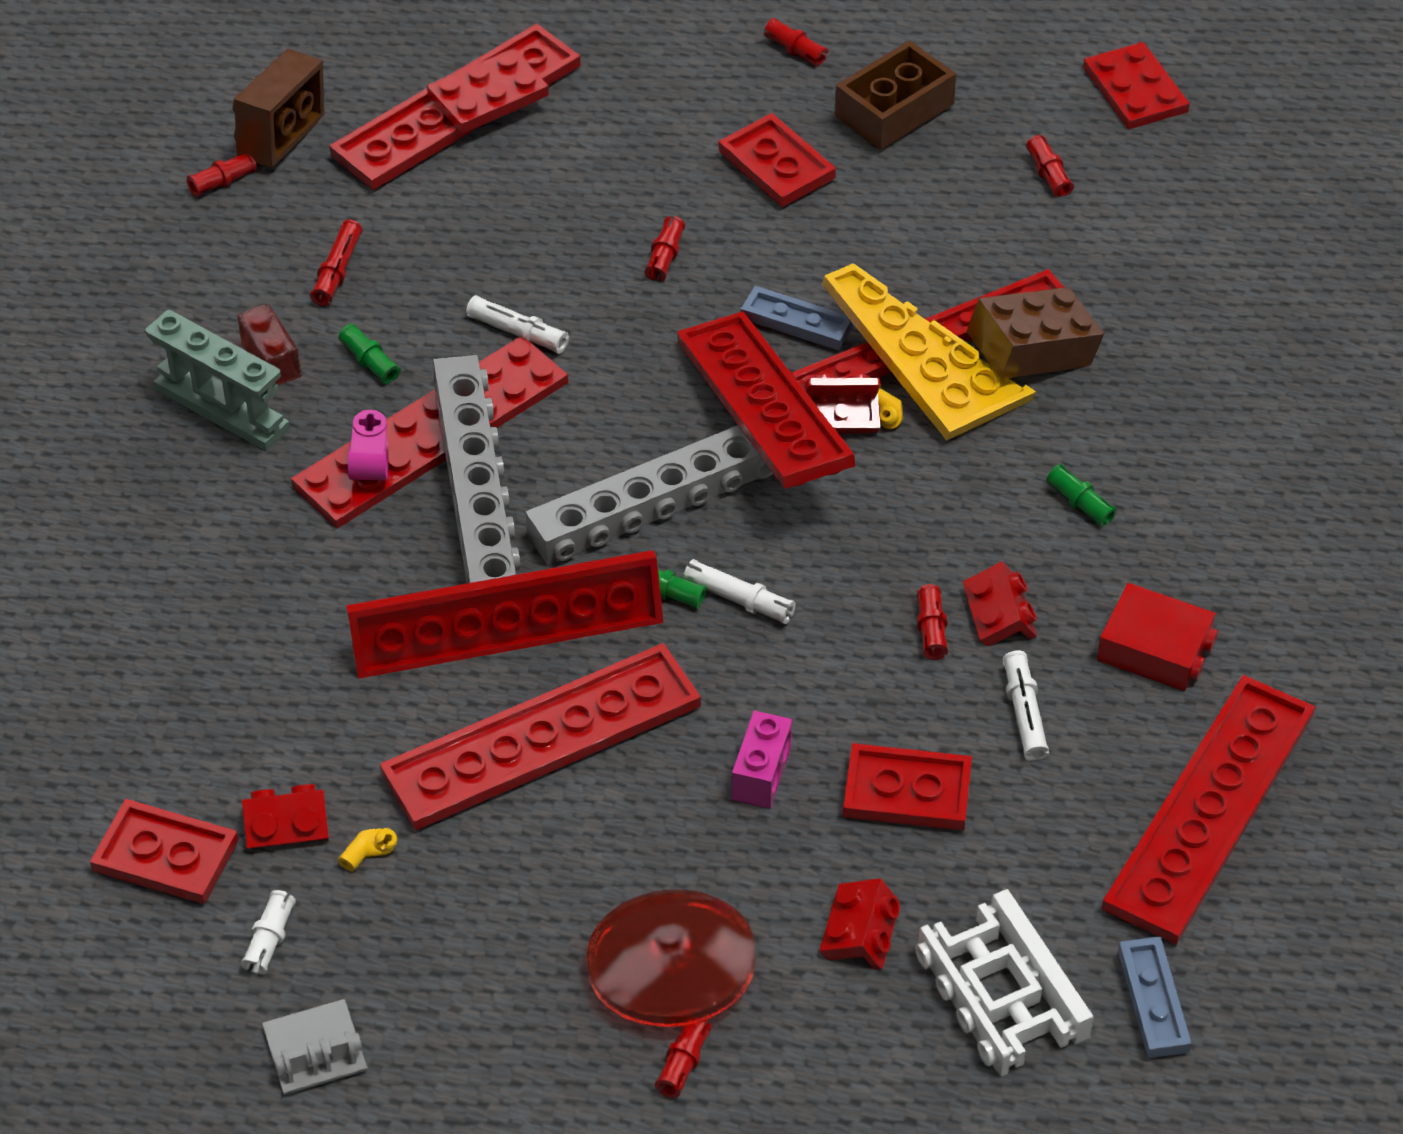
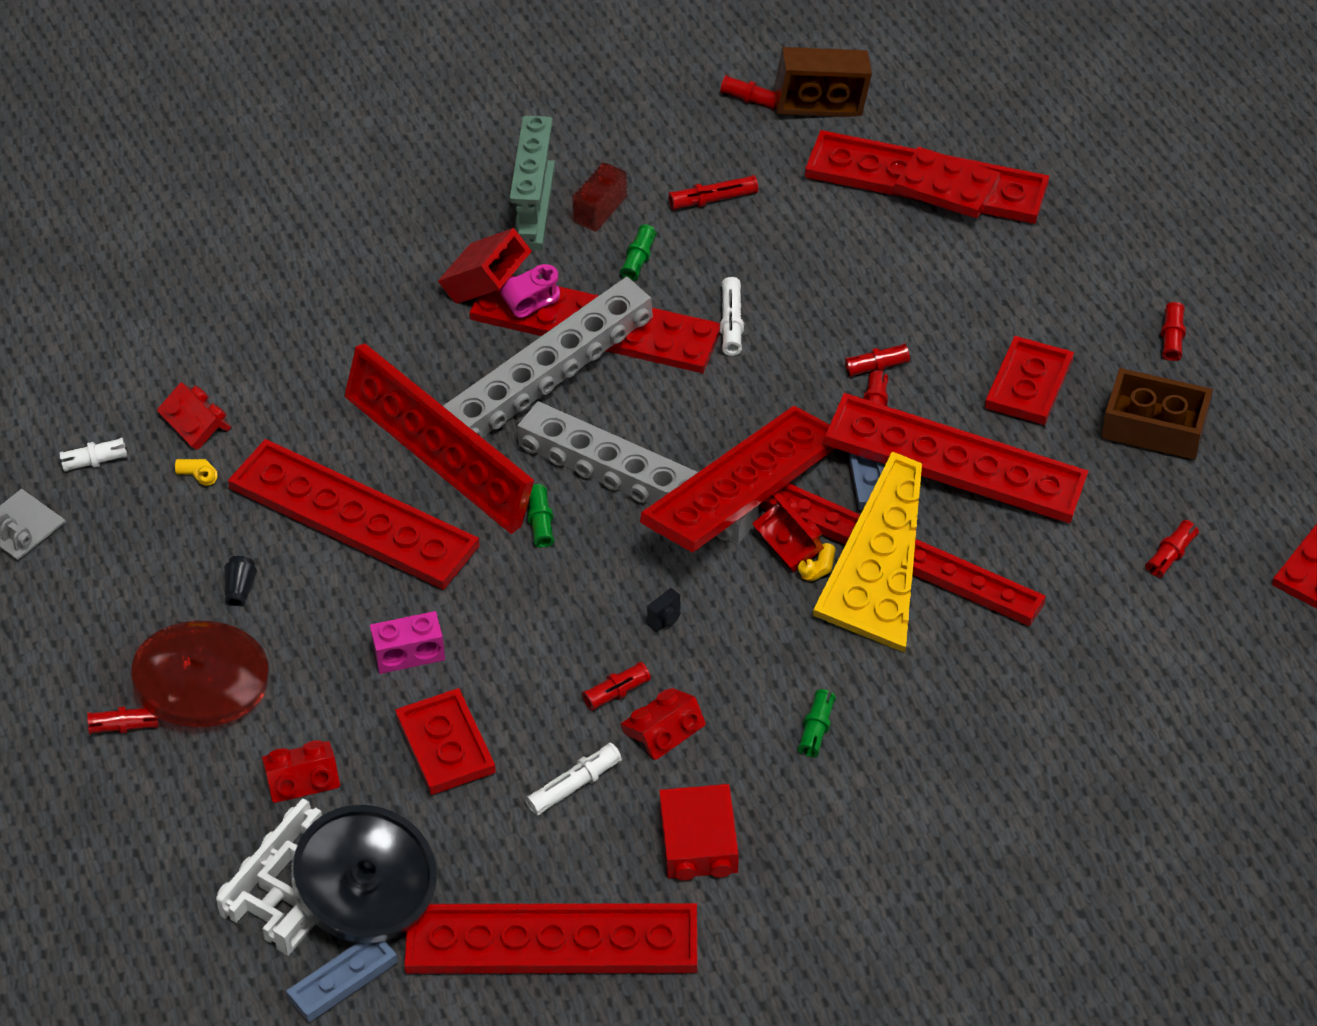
camera: 60 degrees right, 0 degrees up
(164, 851) = (126, 371): red plate -> none
(301, 470) = (485, 266): none -> red brick
(561, 872) = (239, 577): none -> black cone
(714, 273) = (876, 388): none -> red pin
(753, 597) = (564, 570): white pin -> none
(860, 236) = (958, 457): none -> red plate
(867, 541) = (664, 610): none -> black plate
(1034, 332) = (956, 613): reddish brown brick -> none
(1064, 909) = (364, 873): none -> black dish

